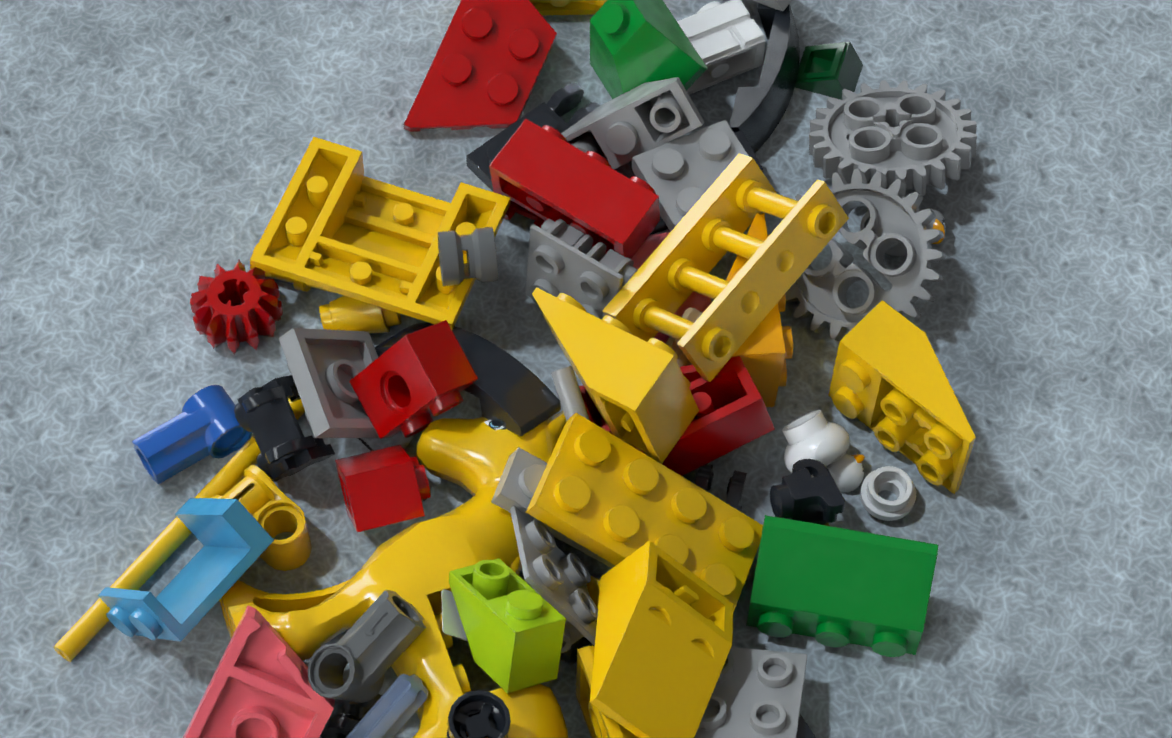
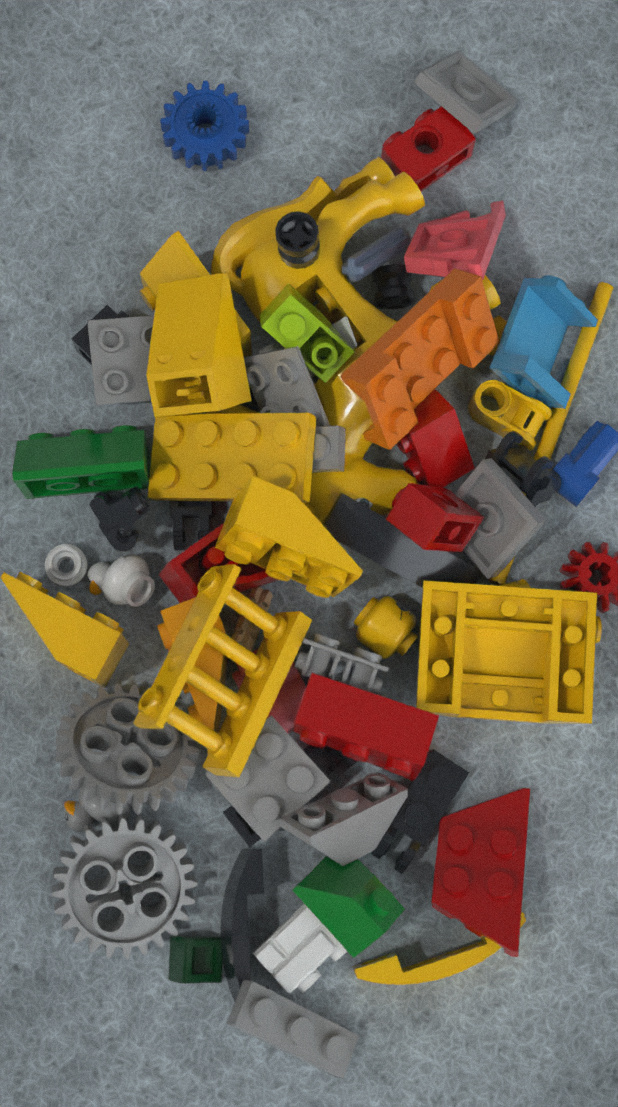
camera: 160 degrees right, 20 degrees up
(295, 586) = (420, 352): none -> orange piece
(369, 649) = (393, 286): dark grey piece -> none
(480, 255) = (429, 628): dark grey wheel -> none
(510, 319) = (386, 627): none -> yellow head

